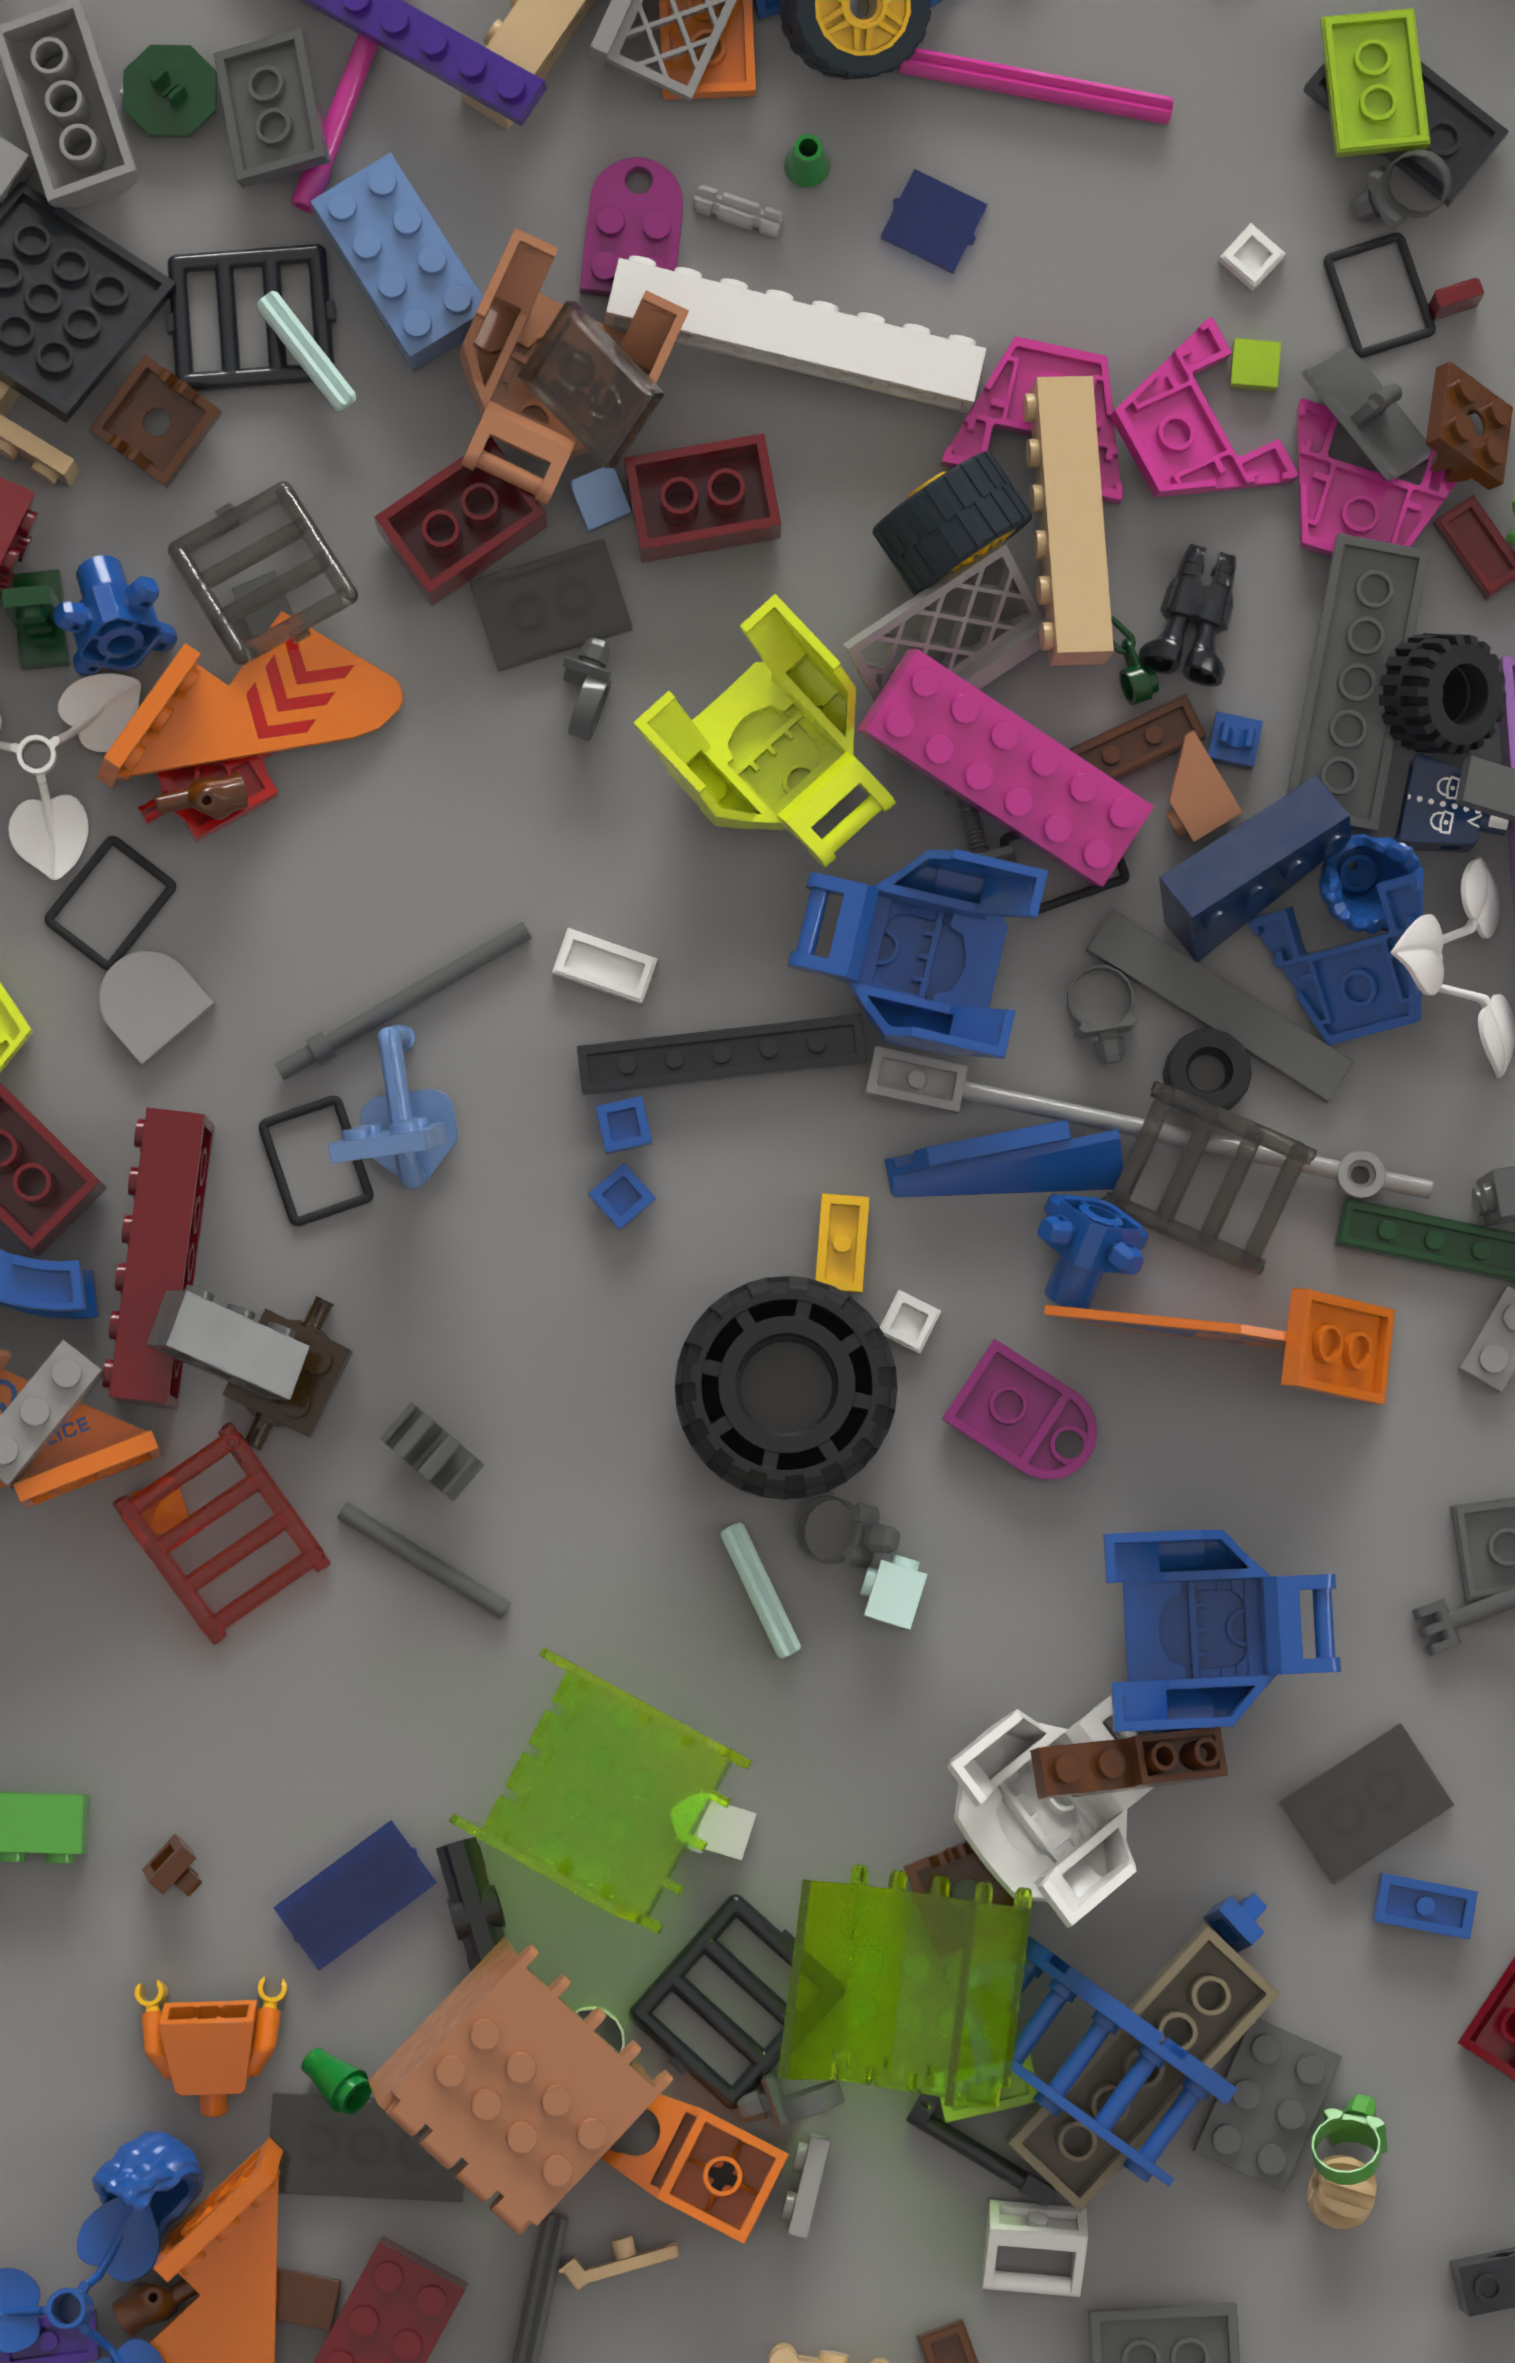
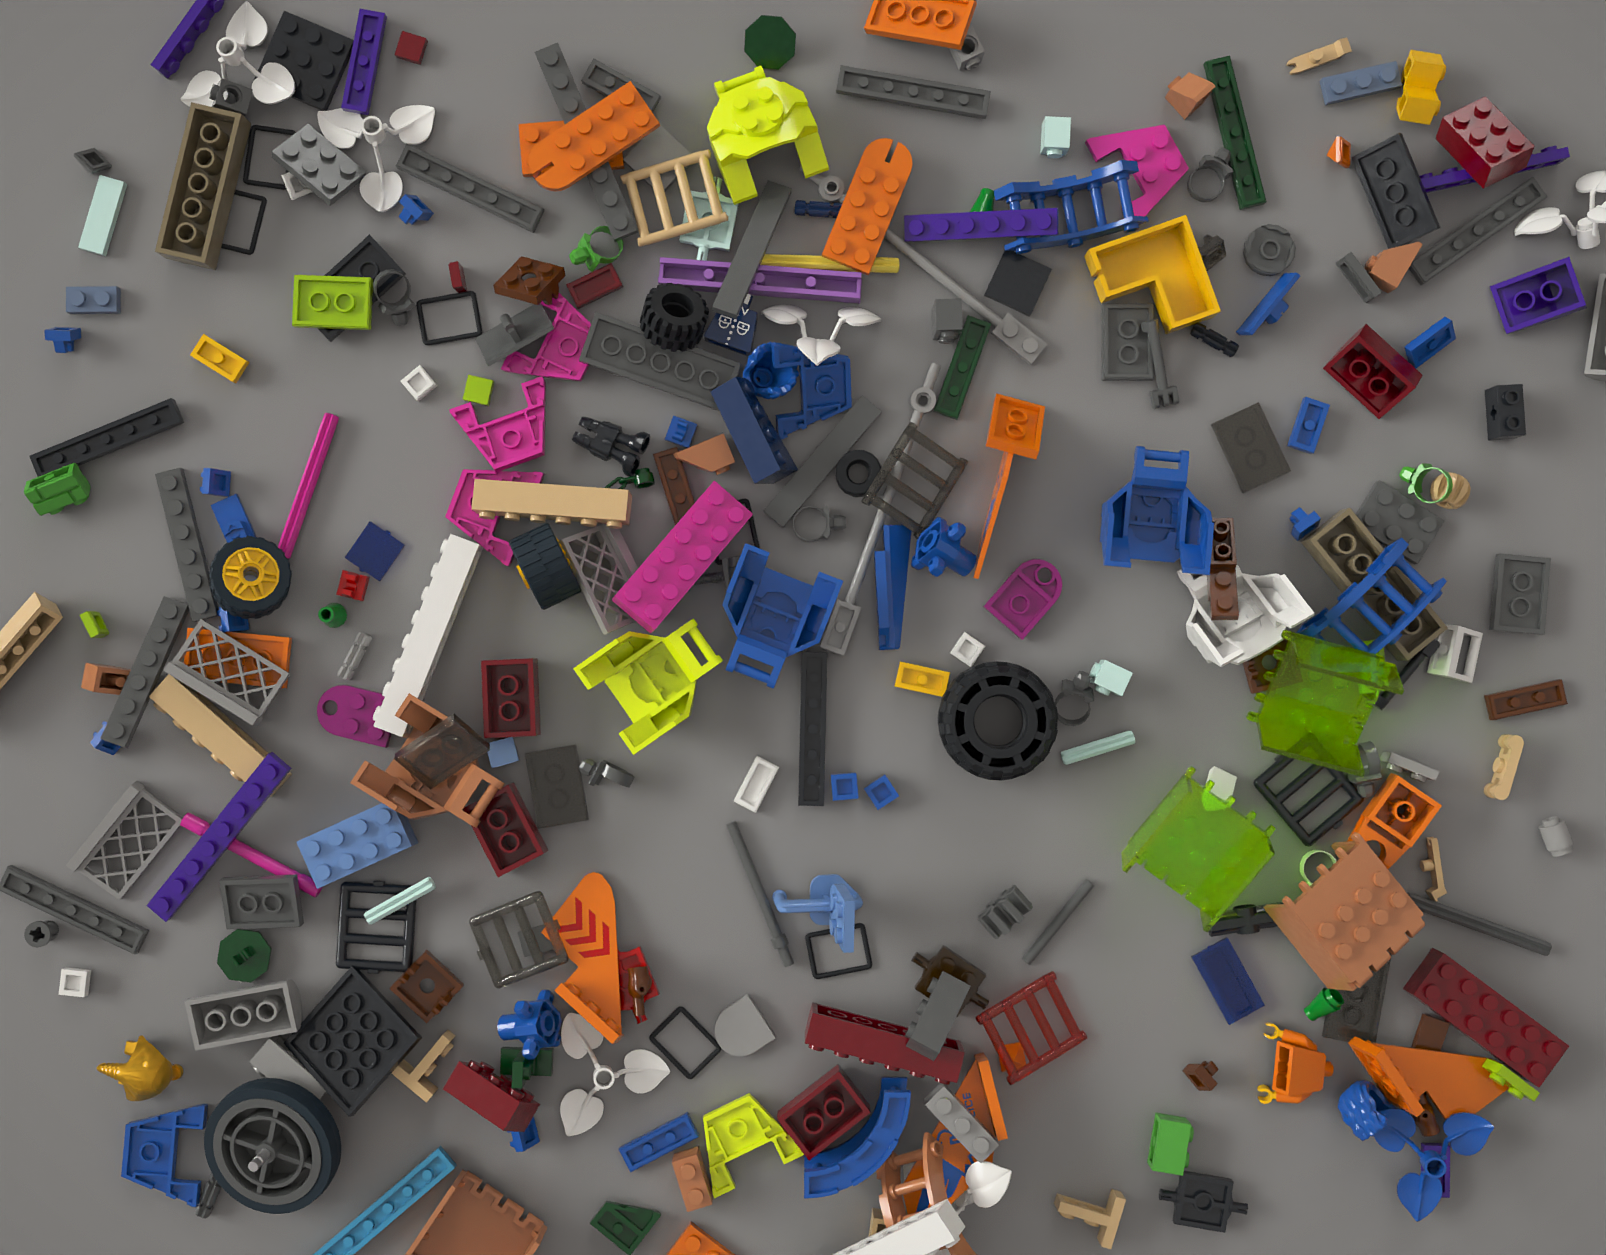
camera: 75 degrees left, 5 degrees up
(865, 190) = (352, 585): none -> red tile

